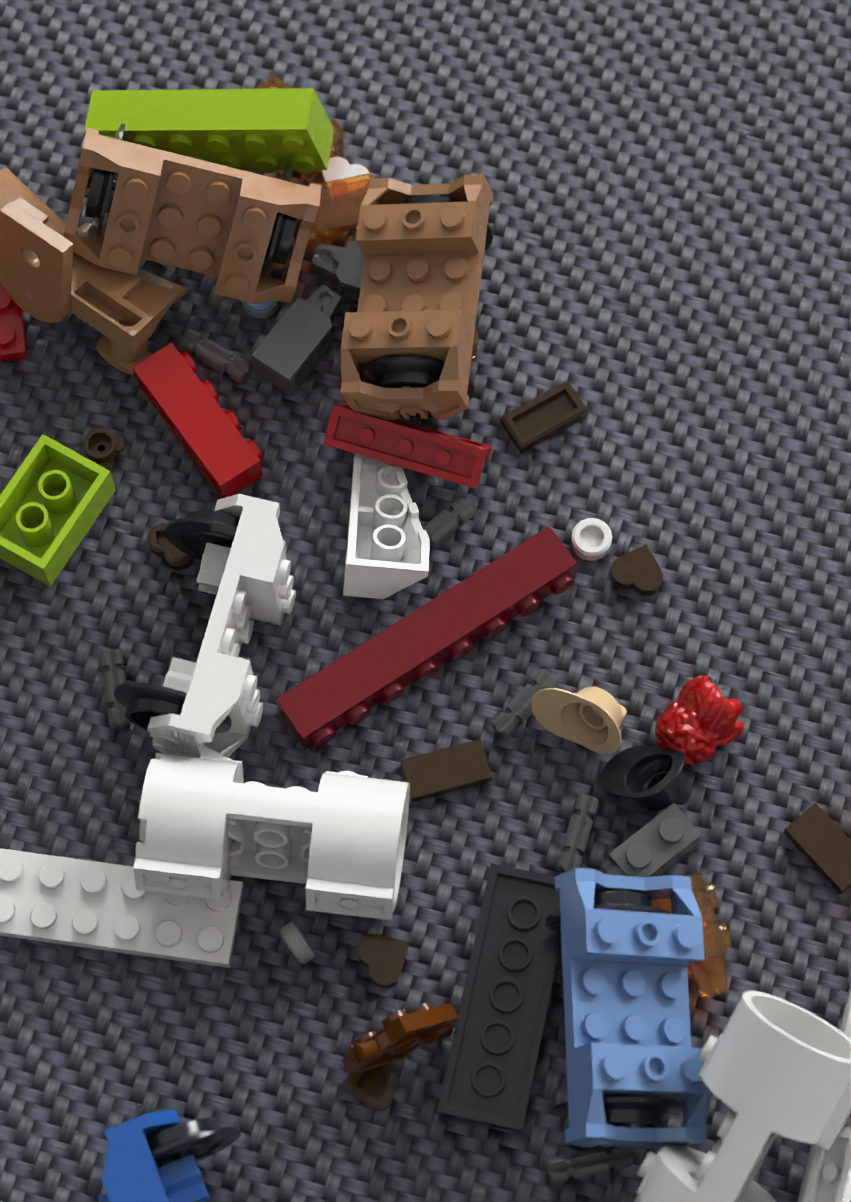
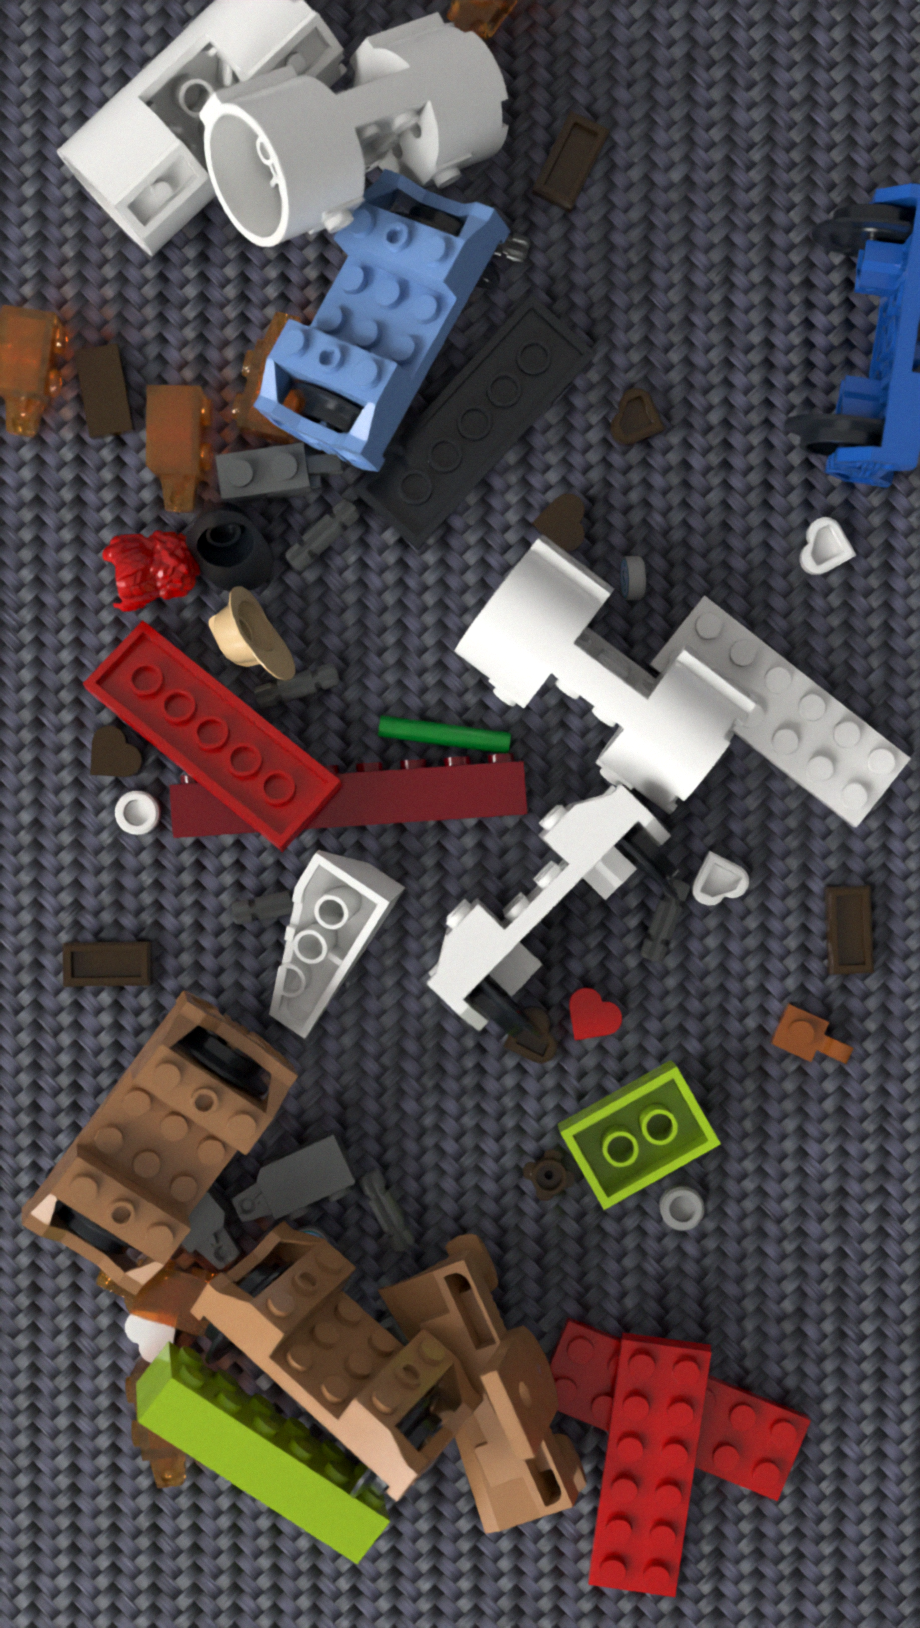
camera: 150 degrees left, 20 degrees up
(88, 745) = (718, 879): none -> white tile
(134, 585) = (592, 1015): none -> red tile
(146, 1067) = (825, 547): none -> white tile
(198, 420) = (442, 1148): red brick -> none
(381, 733) = (444, 734): none -> green piece
(400, 1036) = (598, 424): reddish brown plate -> none
(407, 445) = (253, 999): red fence -> none
(446, 770) = (405, 664): dark brown tile -> none
(566, 618) = (213, 735): none -> red plate
(741, 837) = (177, 442): none -> clear orange hinge

